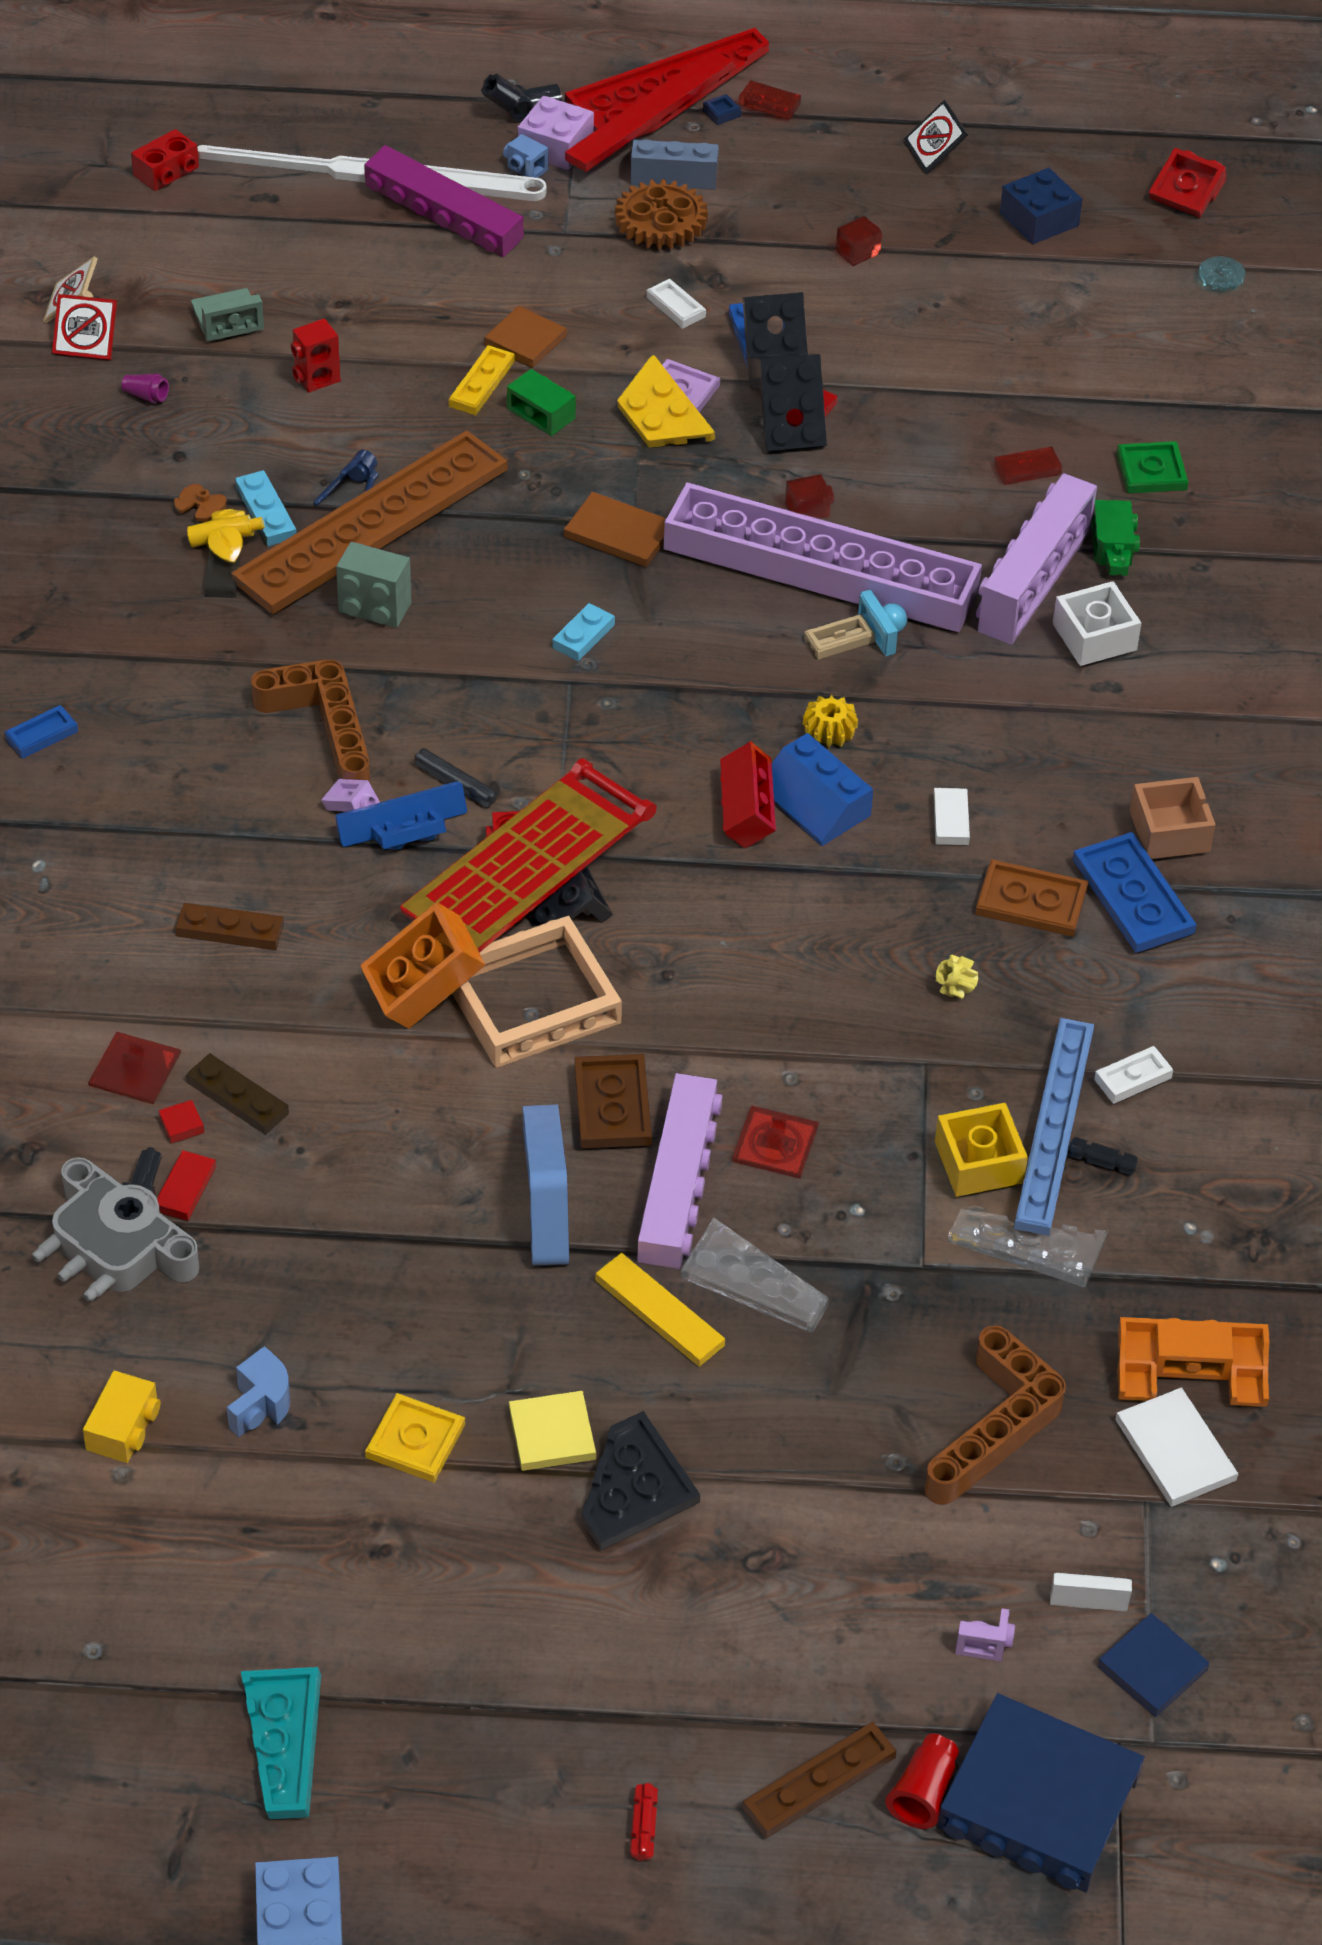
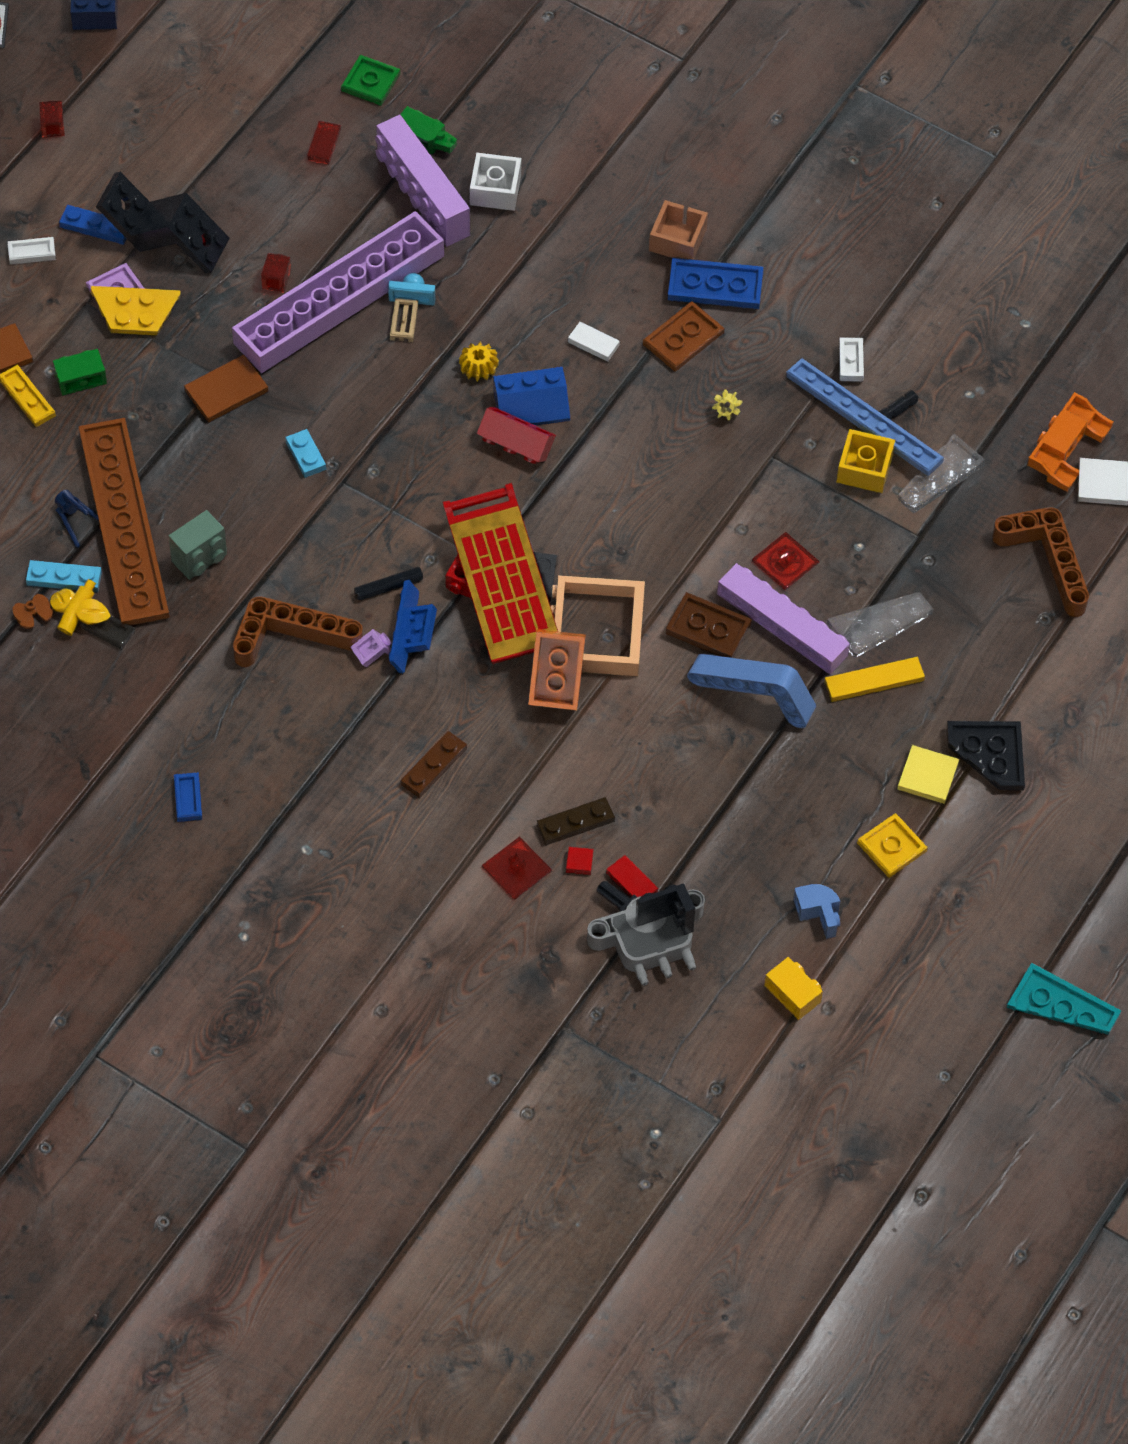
camera: 60 degrees left, 10 degrees up
(134, 1212) = (671, 901): none -> black bracket

